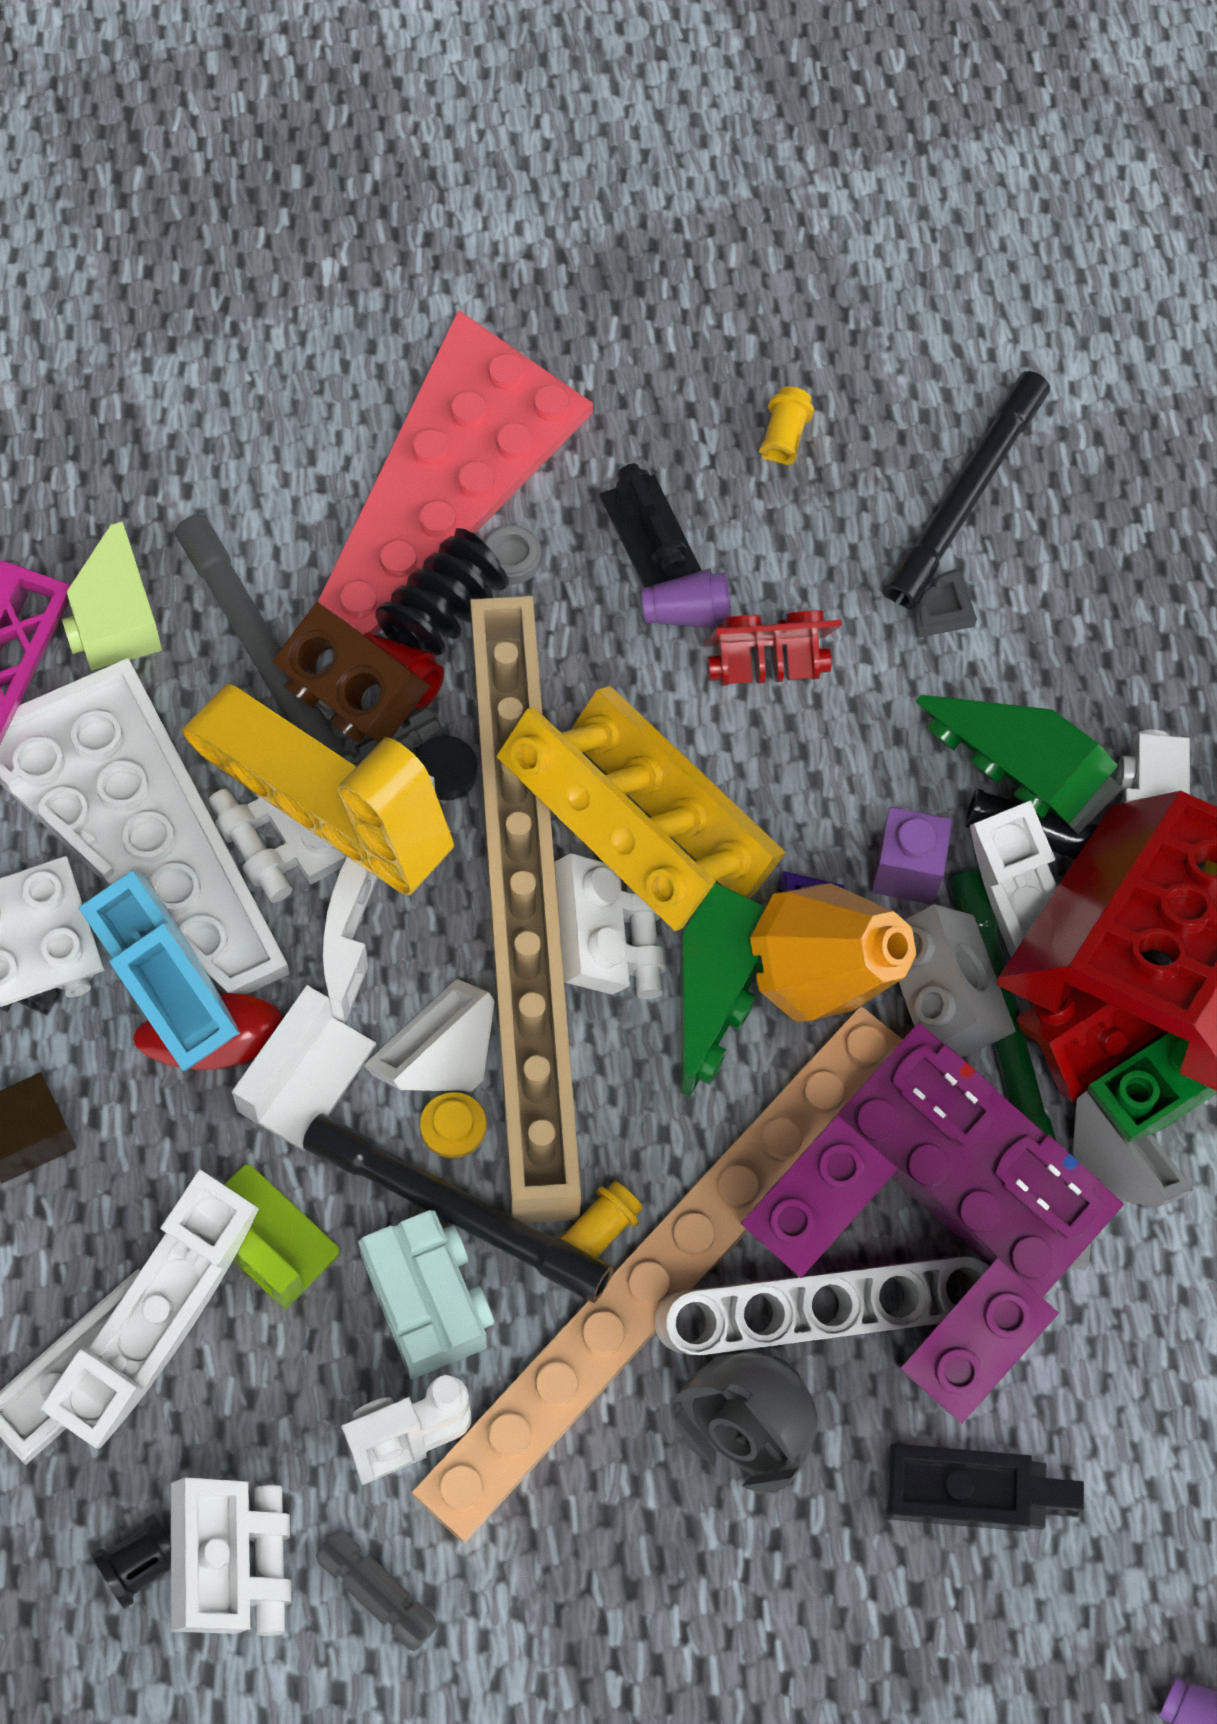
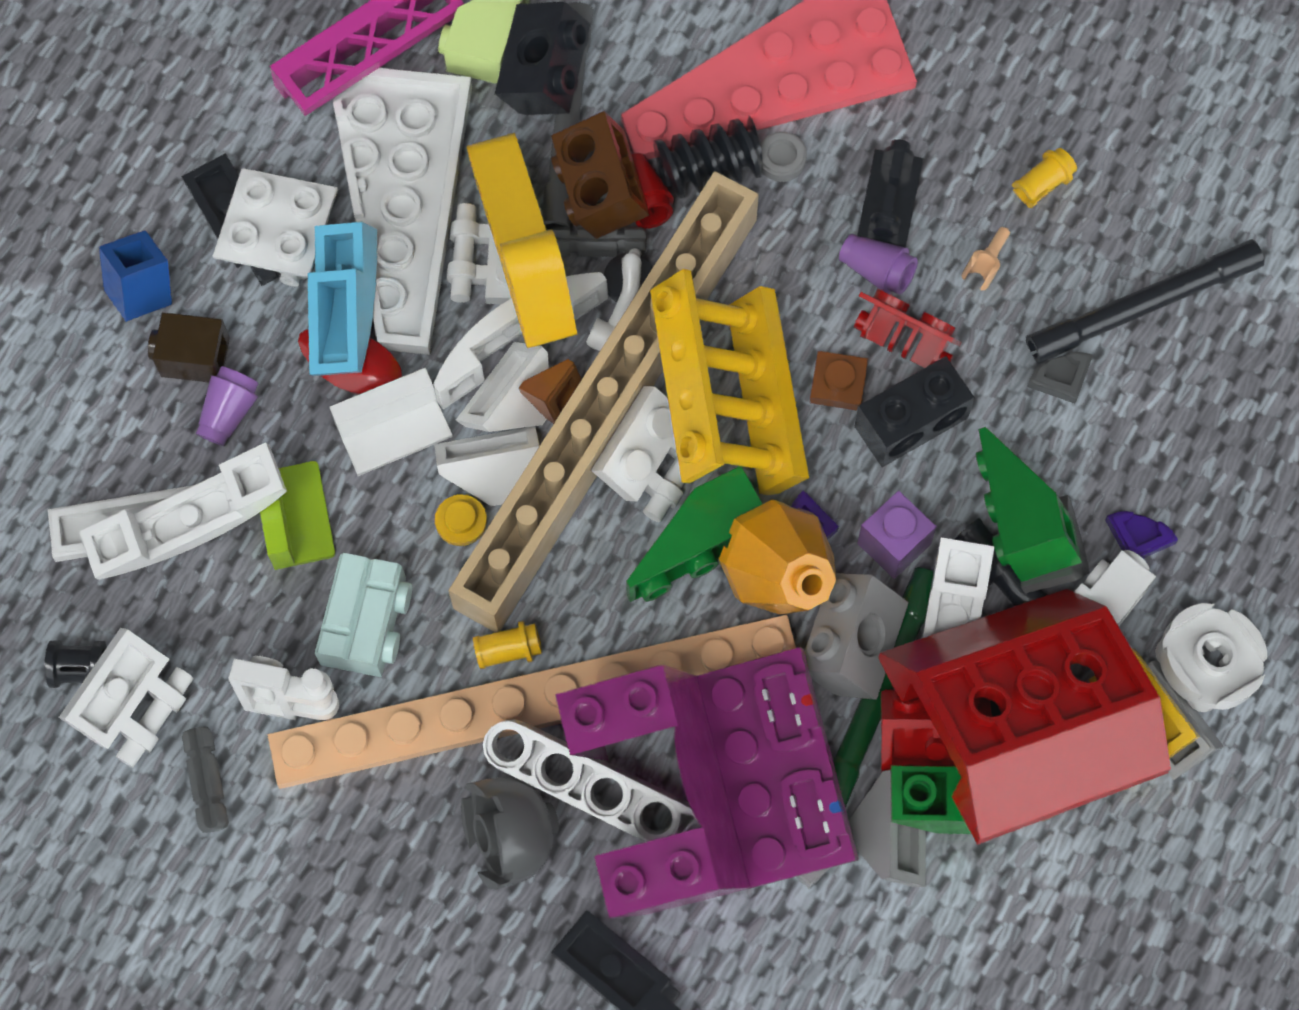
camera: 40 degrees right, 5 degrees up
(104, 1165) = (225, 404): none -> medium lavender cone
(173, 572) = (542, 58): none -> black brick
(408, 958) = (498, 401): none -> white slope
(455, 927) = (552, 389): none -> dark orange slope
(468, 833) = (631, 282): none -> white piece
(550, 1256) = (455, 643): black piece -> none
(734, 741) = (838, 380): none -> dark orange plate
(790, 538) = (986, 261): none -> light nougat hand
(836, 724) = (914, 411): none -> black brick
(1129, 712) = (1140, 533): none -> dark purple tile

